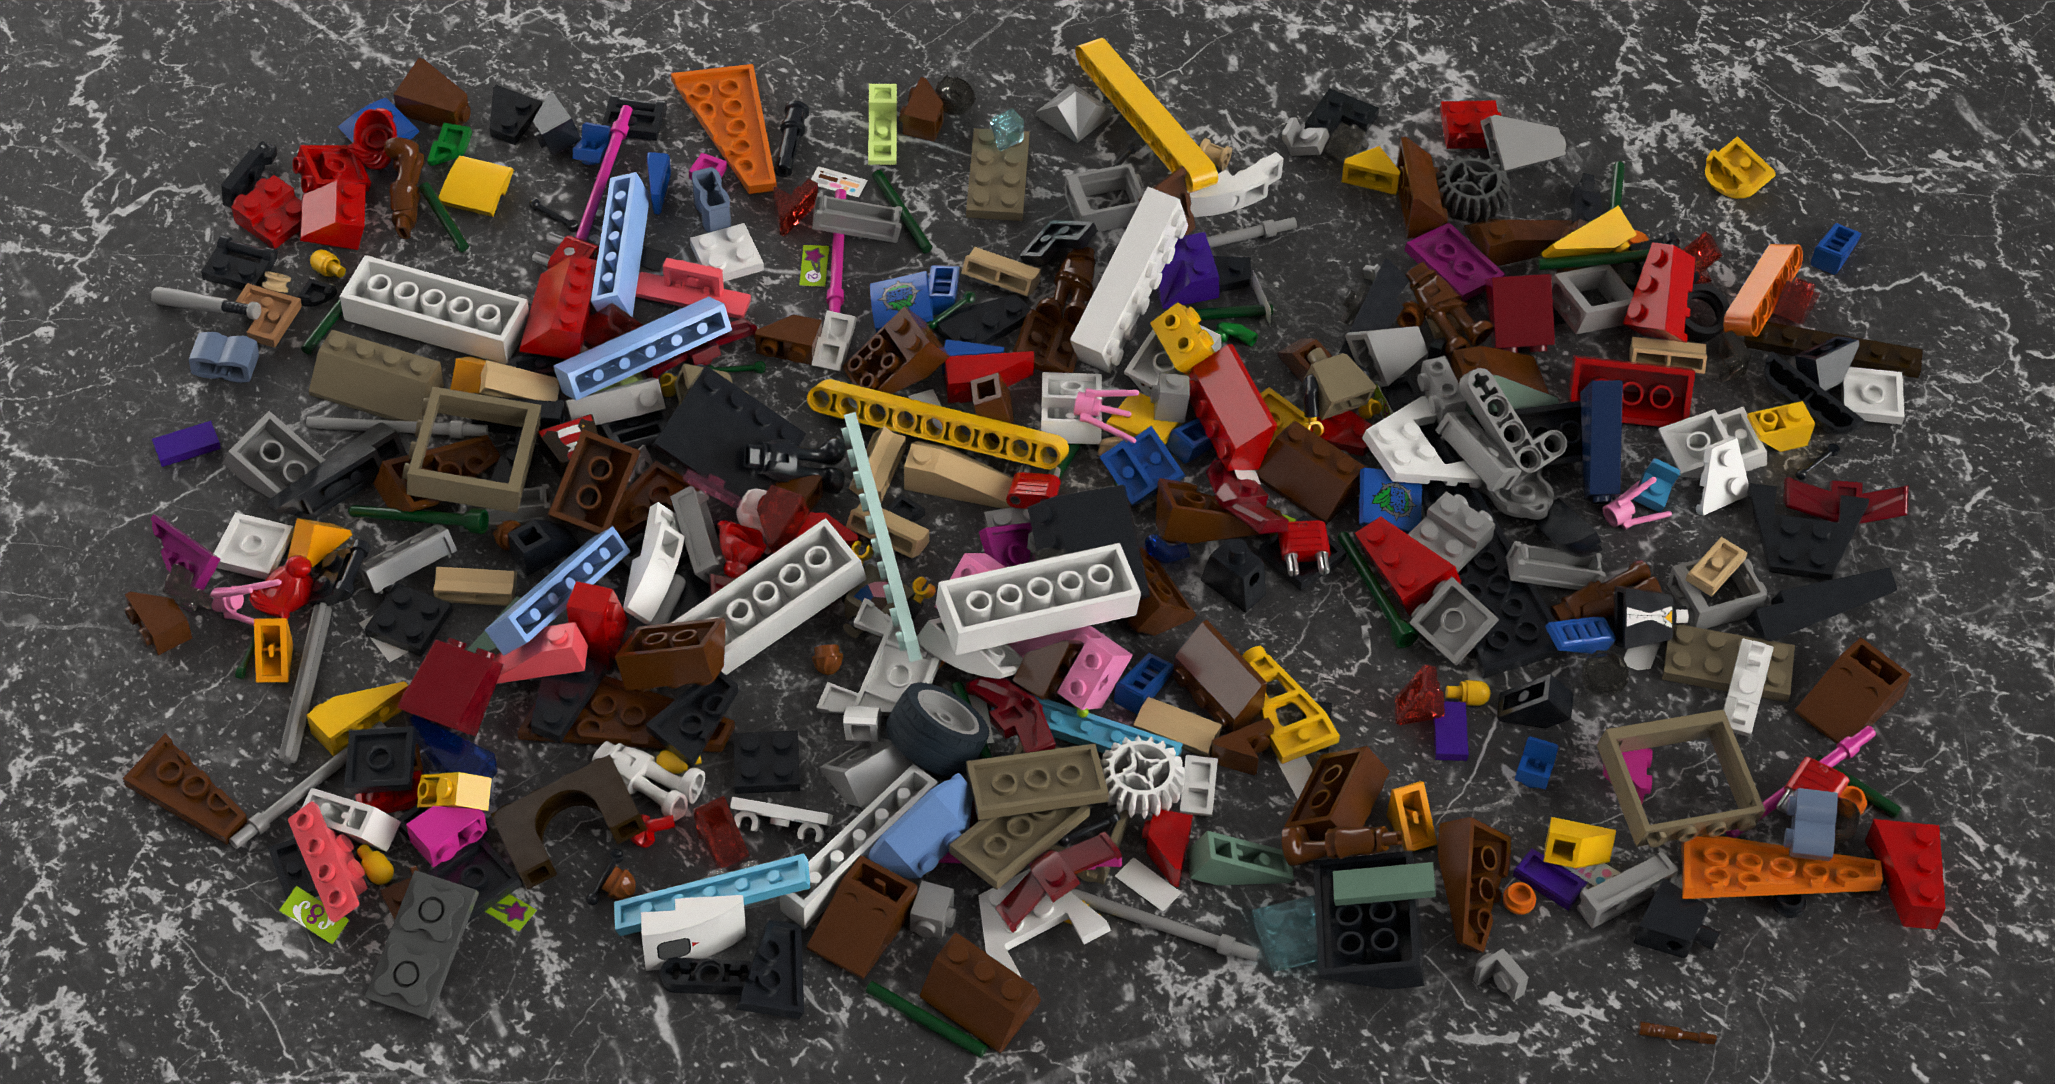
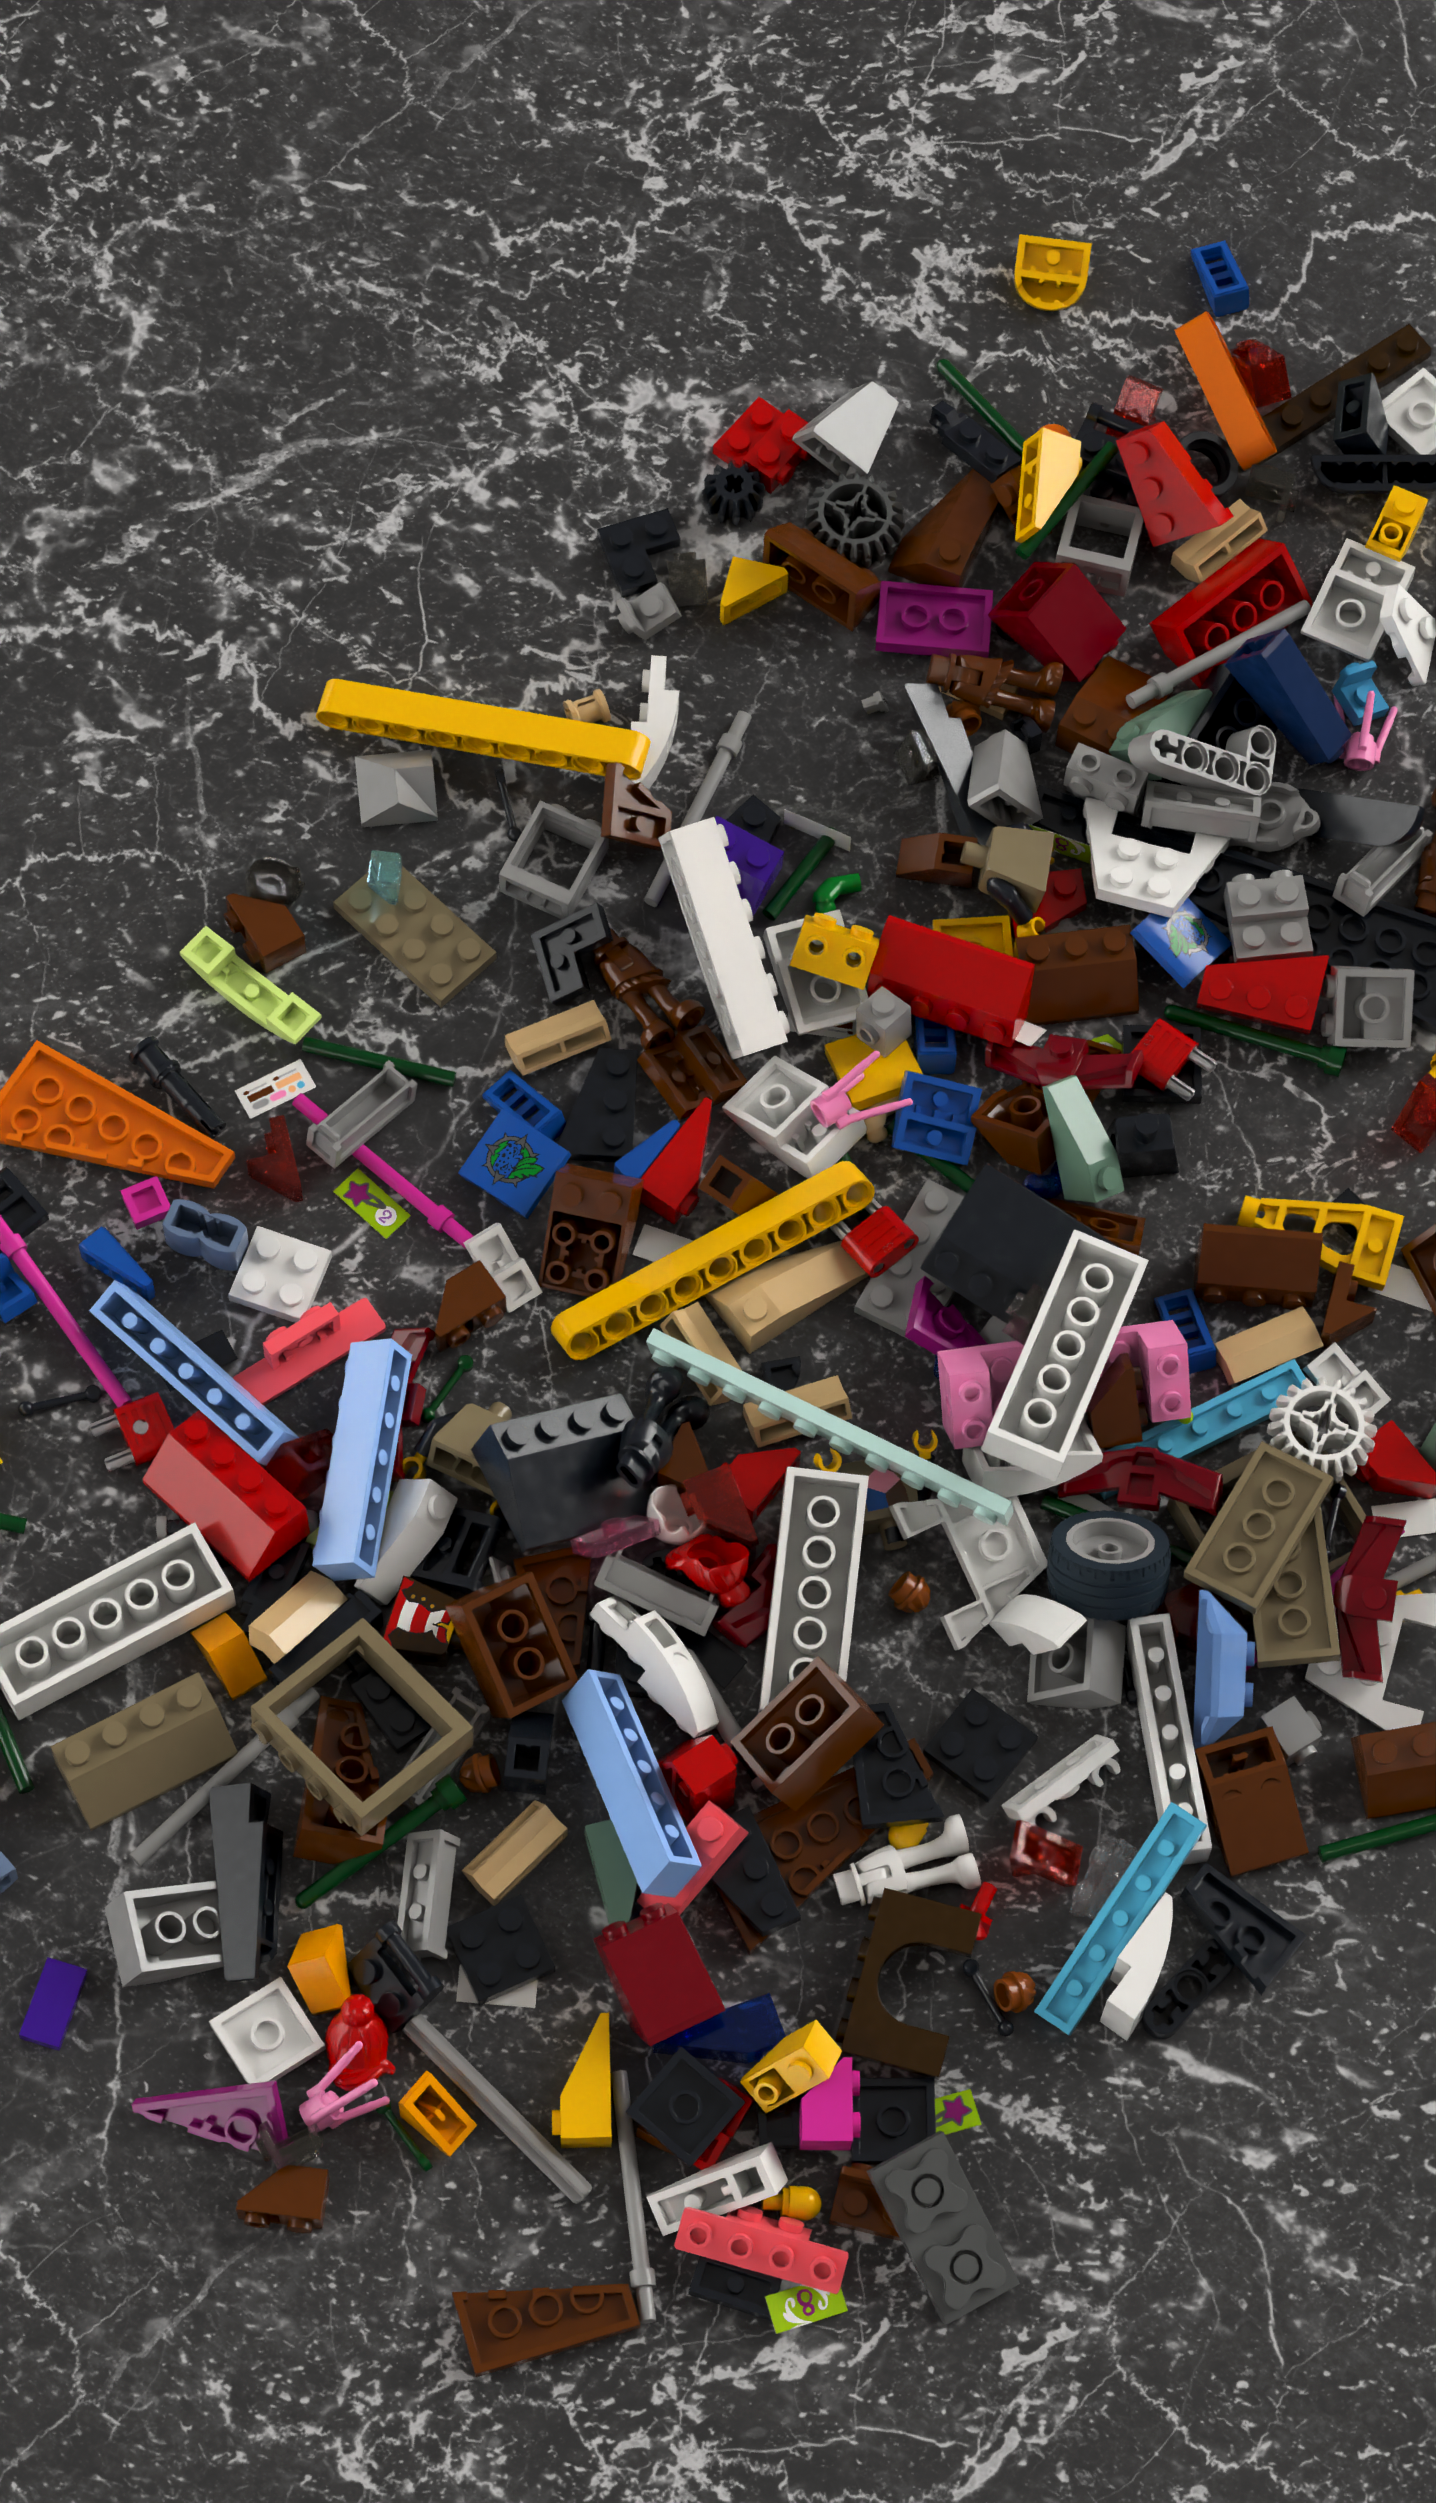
camera: 50 degrees left, 15 degrees up
(968, 297) = (569, 1096): dark green hinge -> none
(1198, 533) = (1082, 1148): none -> sand green slope
(1423, 126) = (733, 493): none -> black gear
(1538, 381) = (1163, 684): none -> light grey bar

